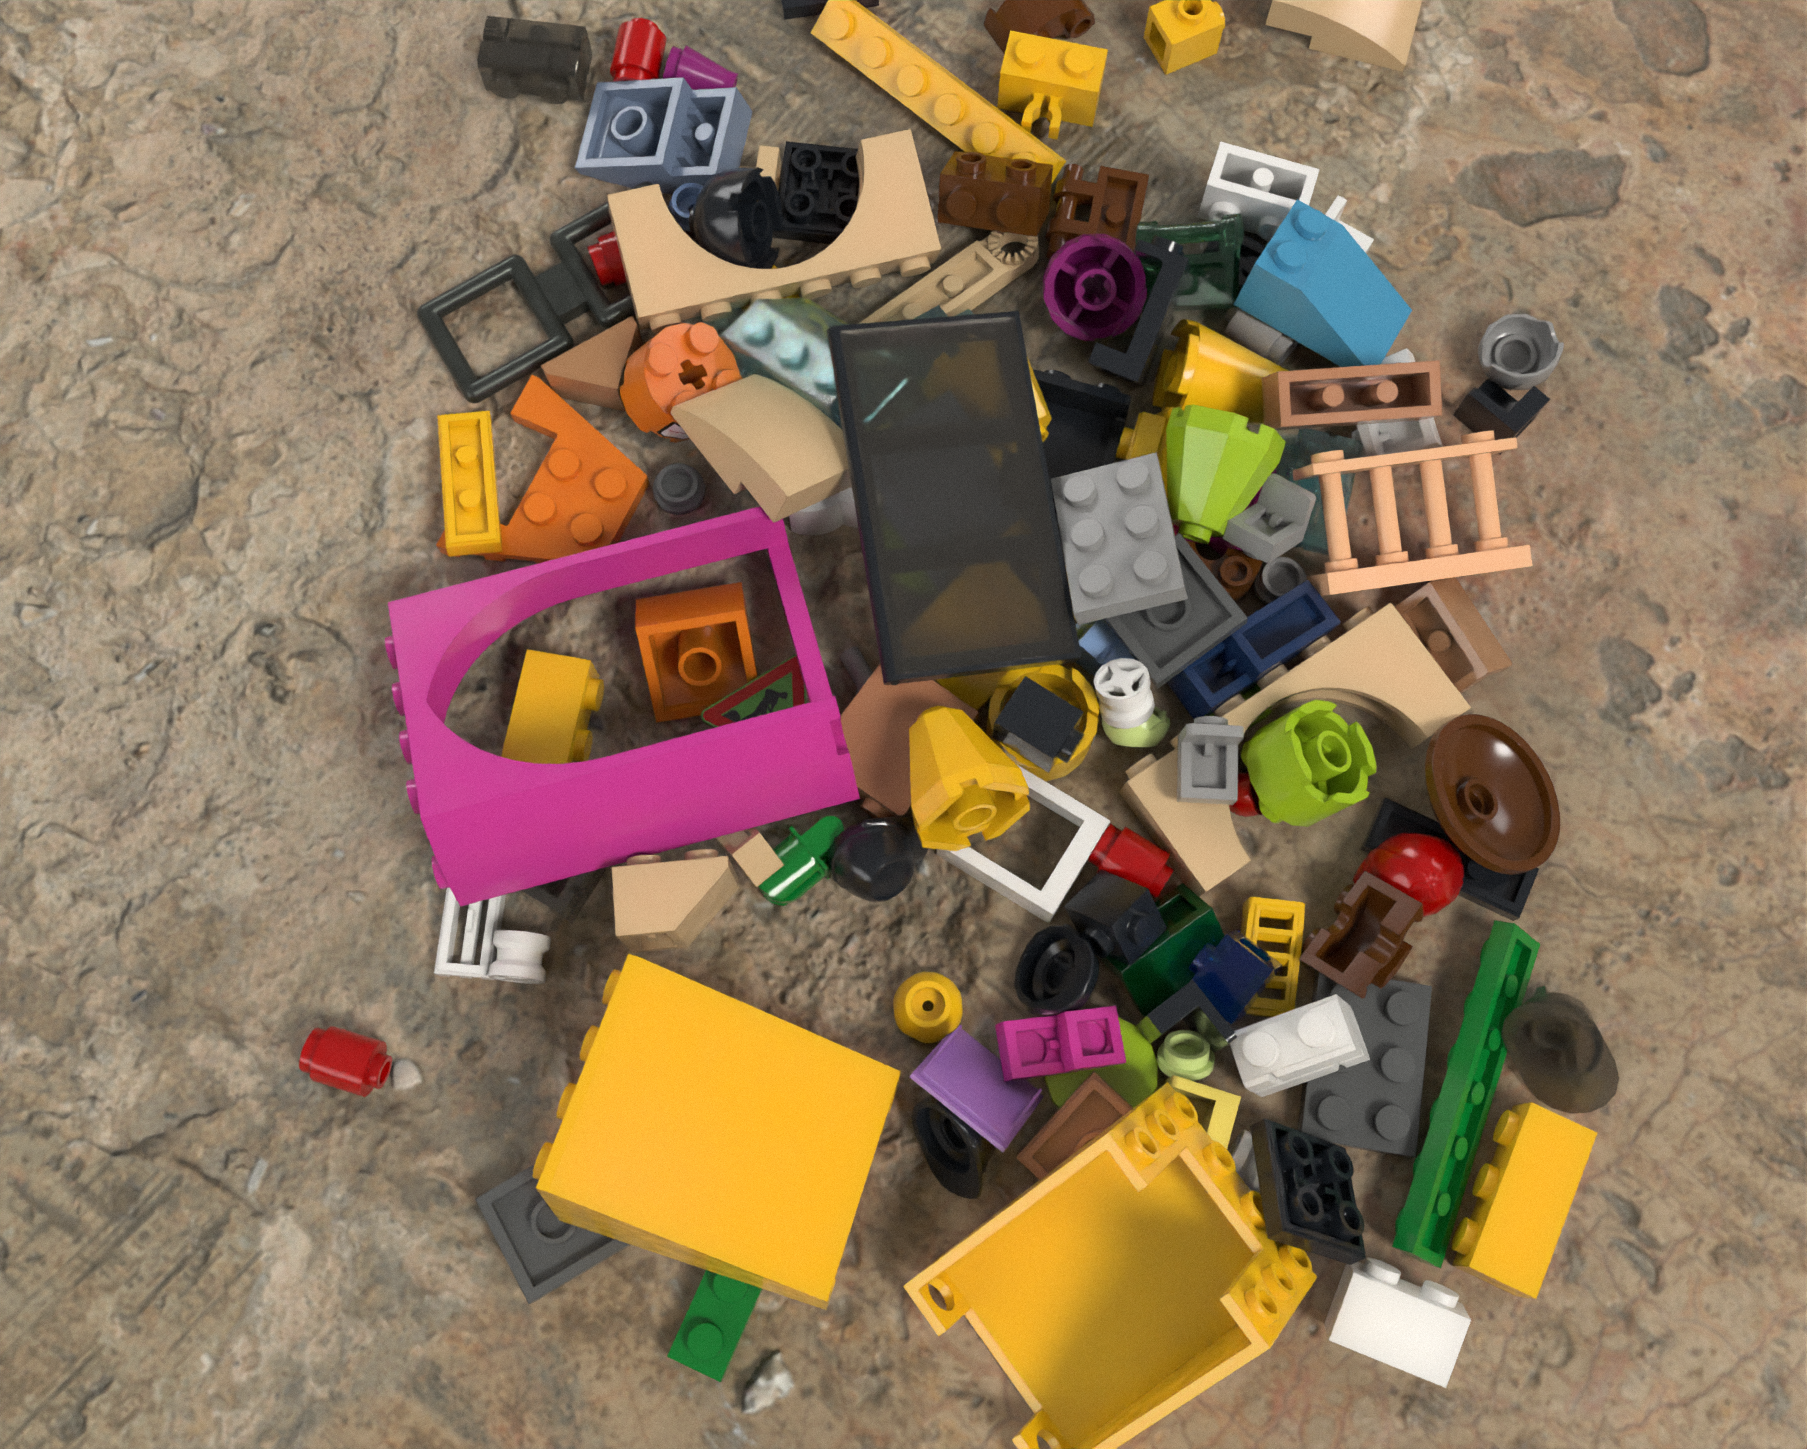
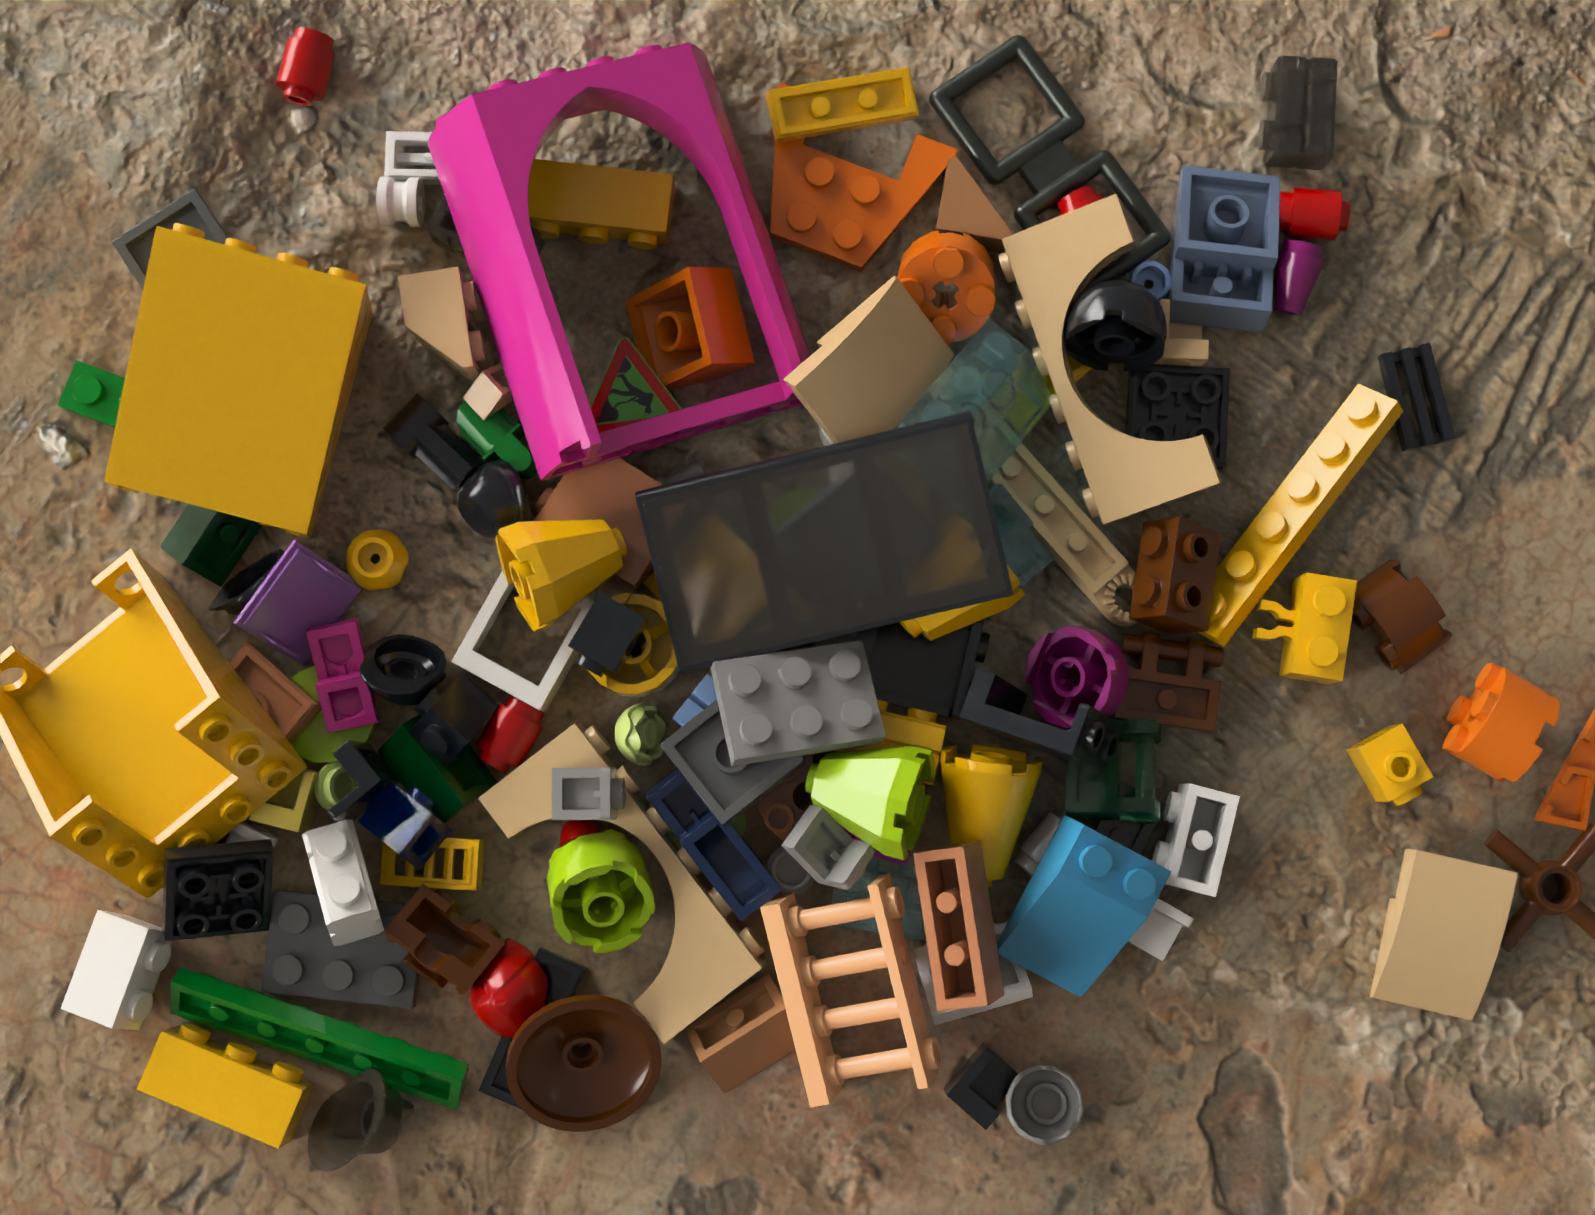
camera: 90 degrees right, 10 degrees up
(679, 489) = (847, 294): dark grey plate -> none
(789, 942) = (427, 436): none -> black piece
(895, 1202) = (209, 541): none -> dark green panel
(1124, 693) = (657, 705): white wheel -> none

